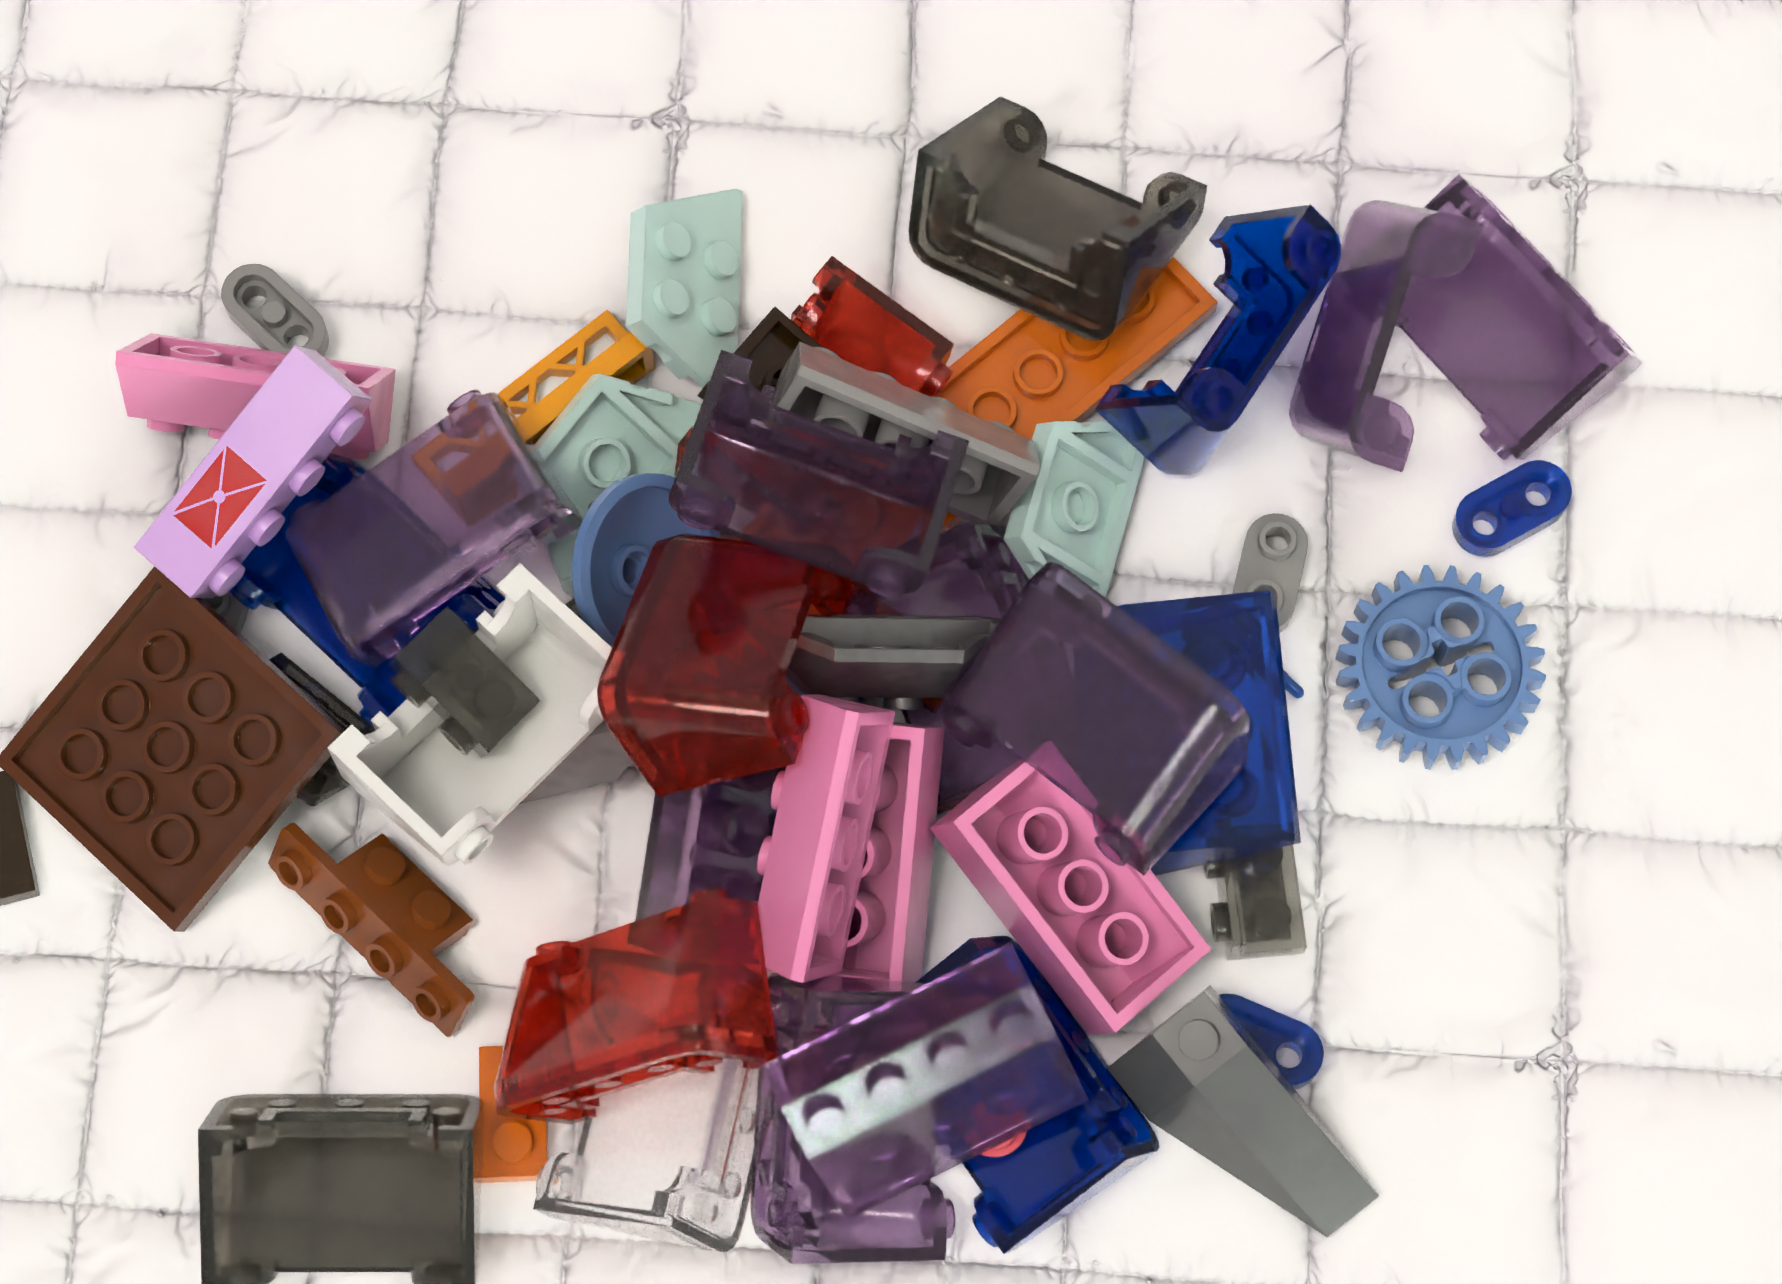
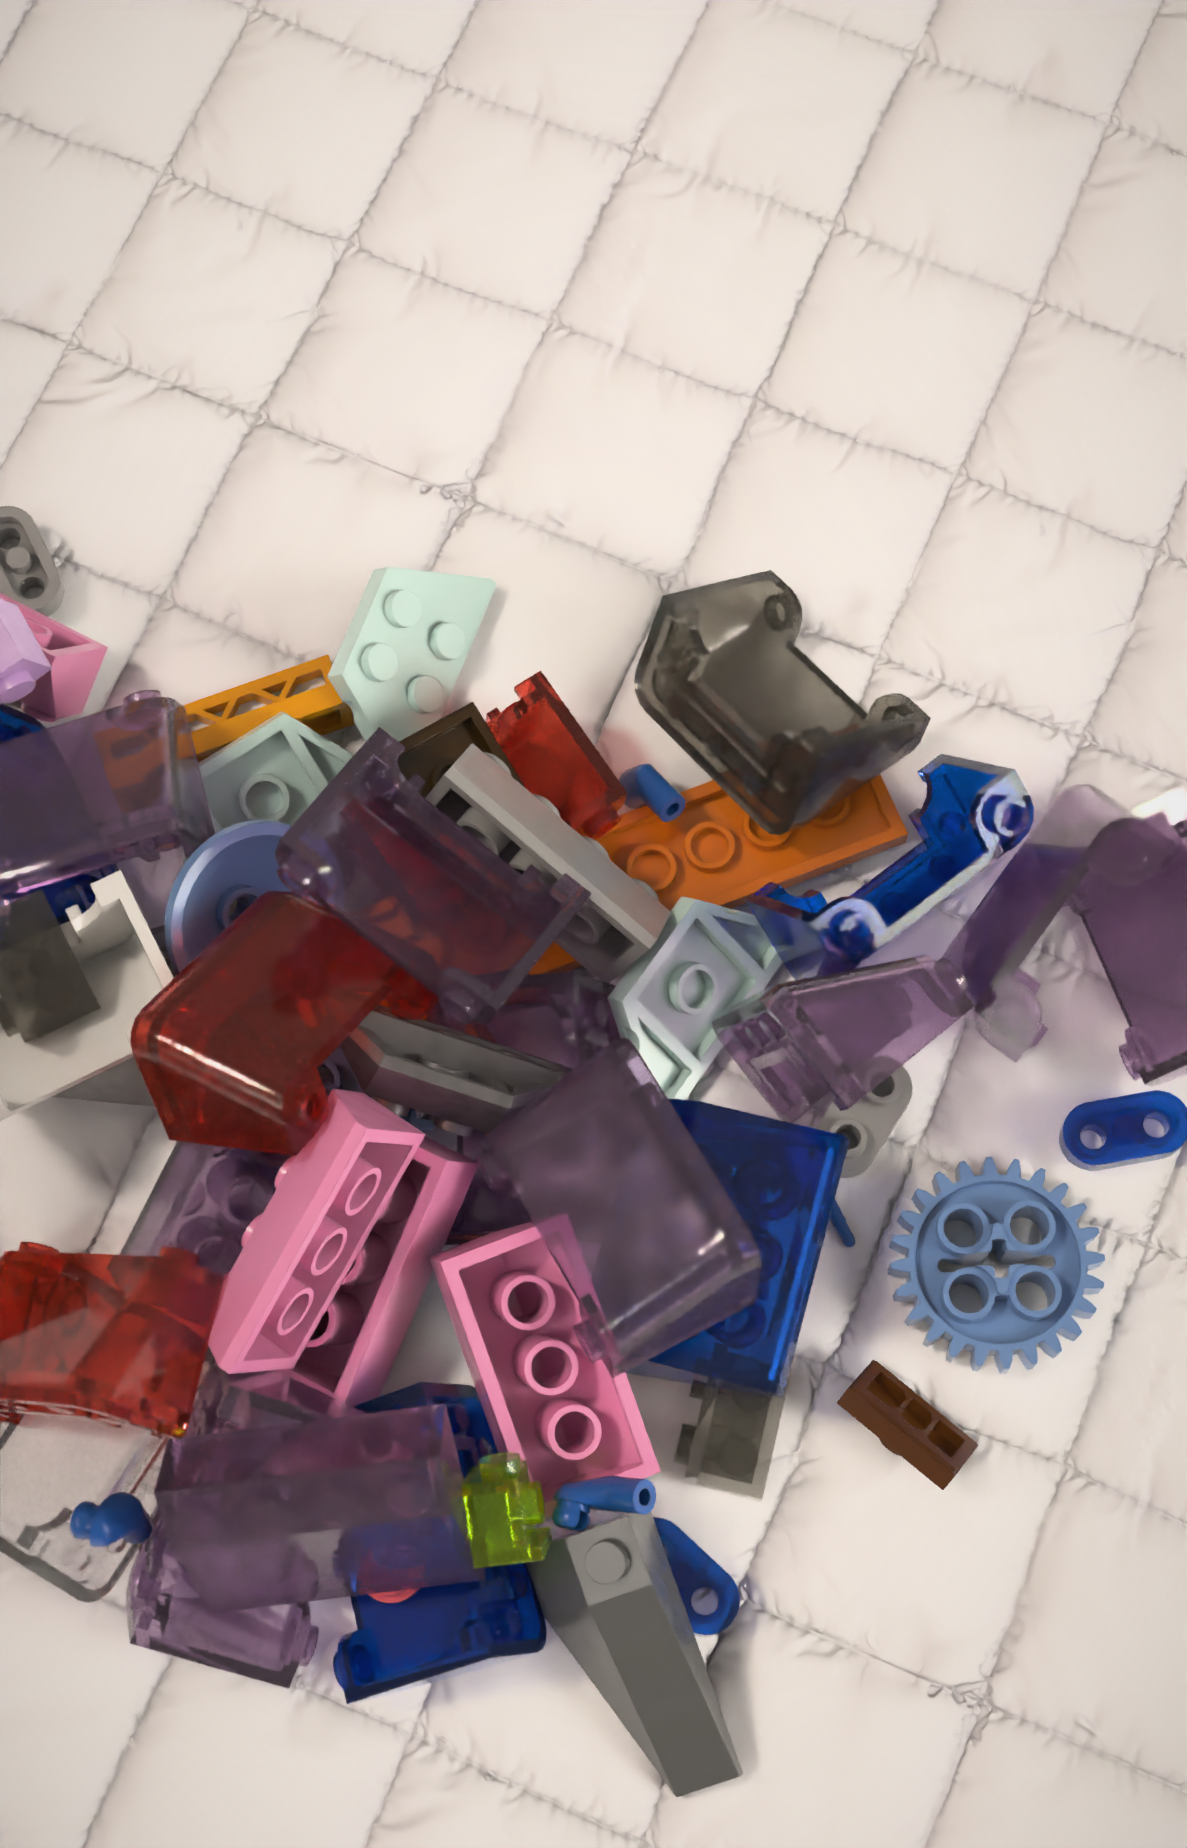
camera: 20 degrees right, 0 degrees up
(733, 1163) = (116, 1518): none -> blue arm
(971, 338) = (650, 788): none -> blue arm
(1089, 1027) = (504, 1512): none -> clear neon green brick
(1171, 983) = (604, 1494): none -> blue arm
(1235, 489) = (840, 1030): none -> clear purple windscreen
(1413, 836) = (907, 1424): none -> reddish brown plate

